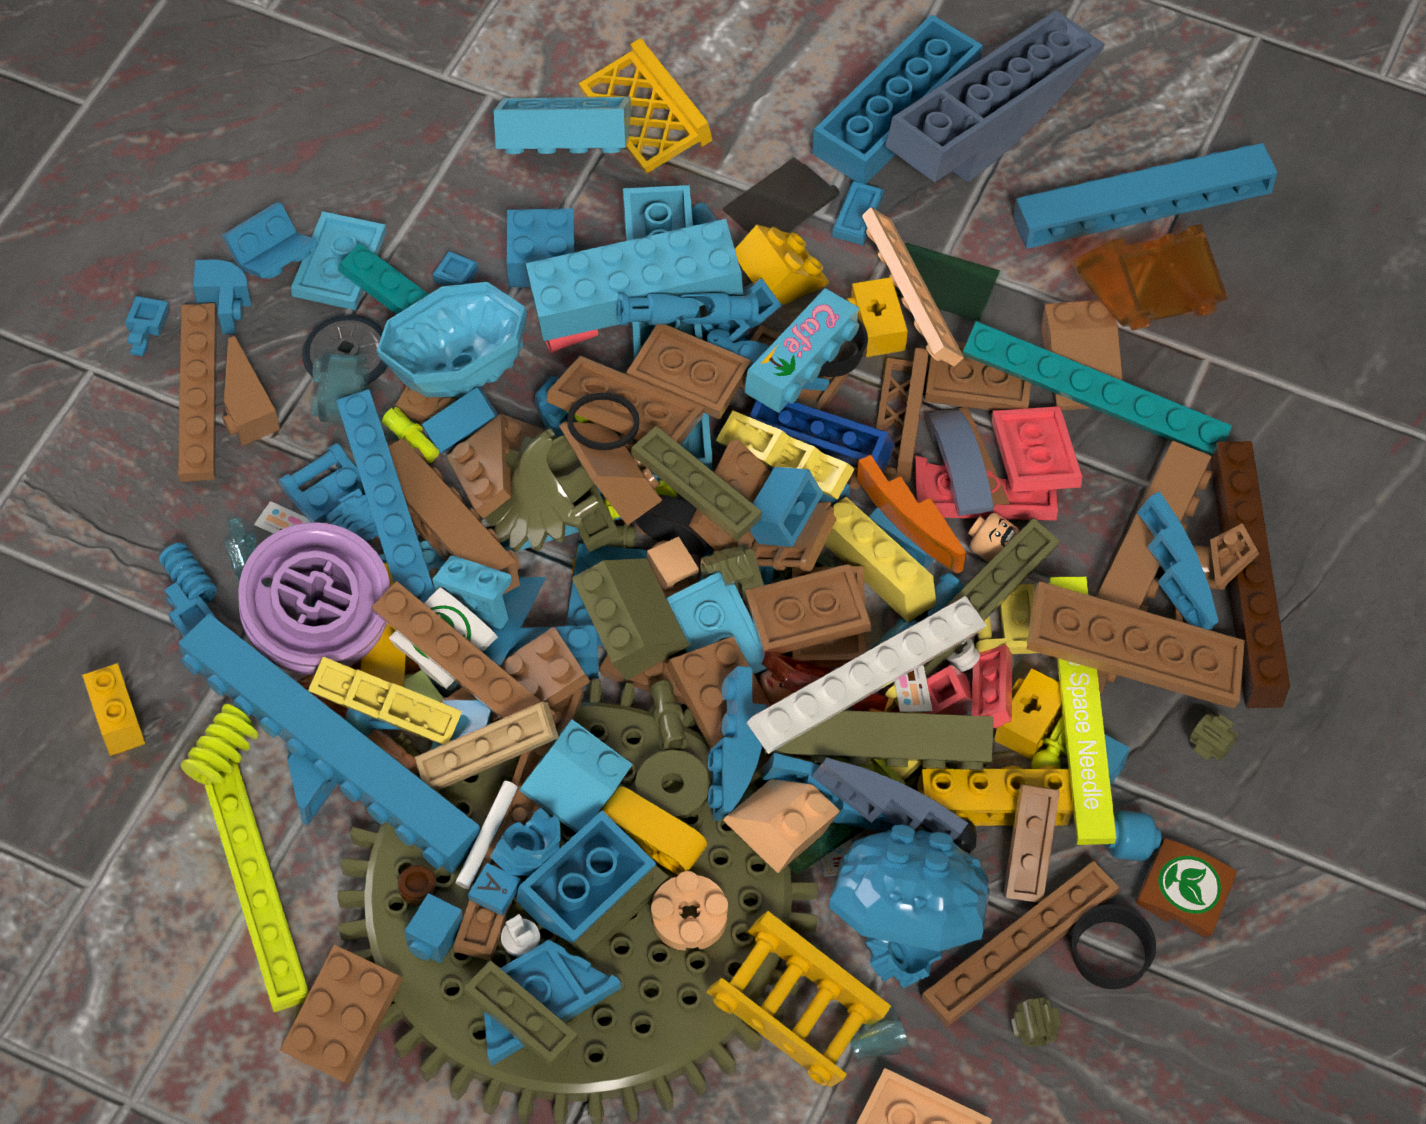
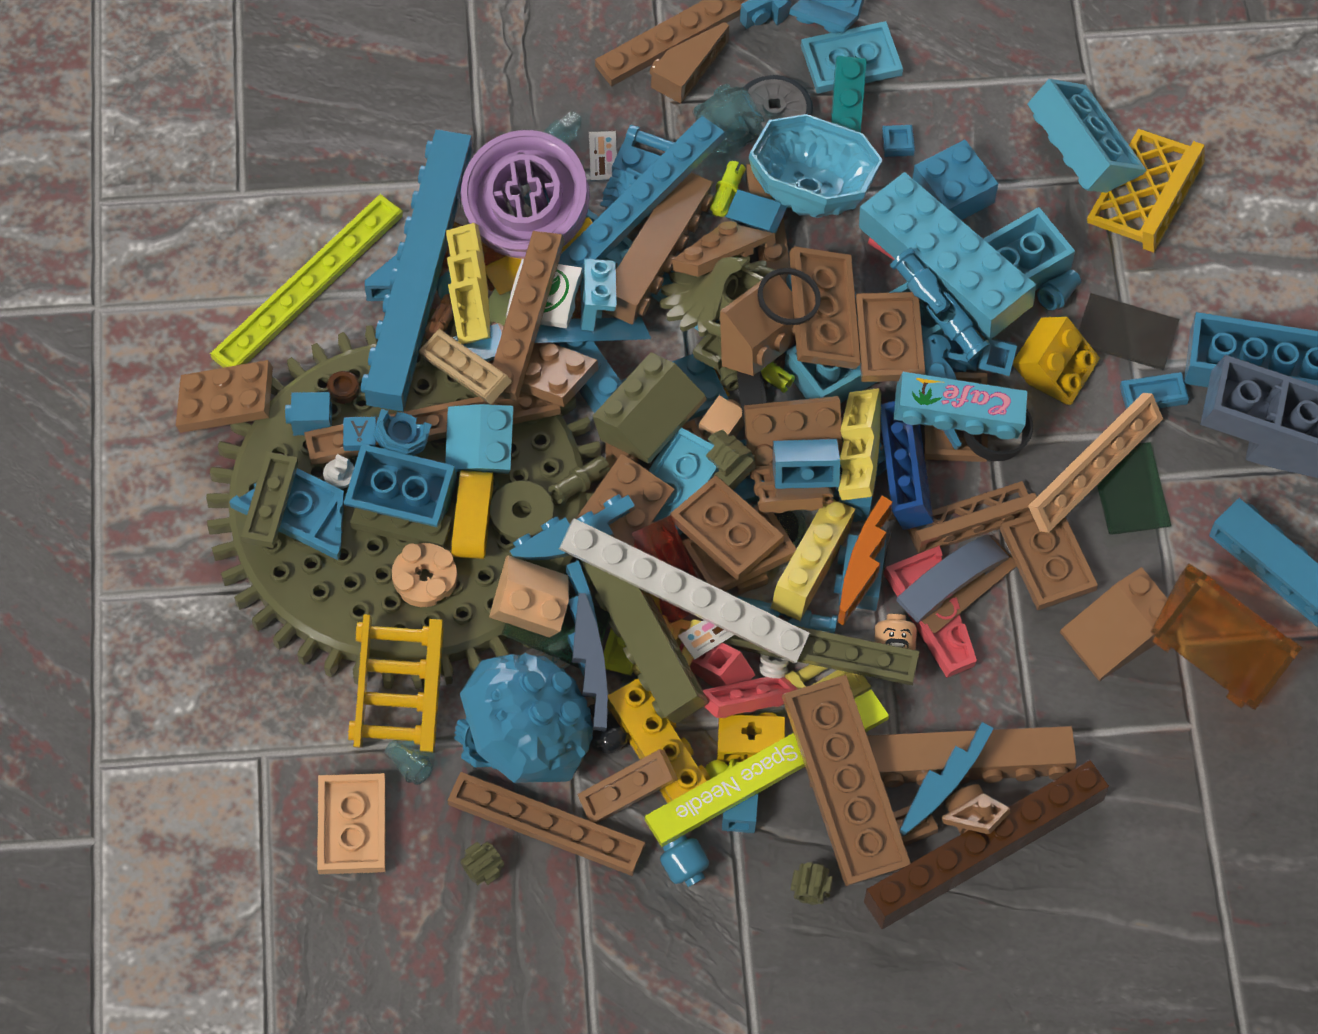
camera: 60 degrees right, 5 degrees up
(113, 709) = (376, 127): yellow brick -> none
(186, 612) = (485, 129): dark azure plate -> none
(187, 572) = (516, 110): dark azure piece -> none
(219, 746) = (380, 207): neon yellow piece -> none
(486, 835) = (406, 405): white bar -> none
(696, 483) = (773, 387): olive plate -> none
(880, 315) = (1052, 453): yellow brick -> none
(1036, 449) = (1000, 629): coral plate -> none
(1095, 389) = (1088, 648): teal plate -> none
(1123, 916) = (579, 860): black tyre -> none
(1186, 887) = (666, 923): slope -> none

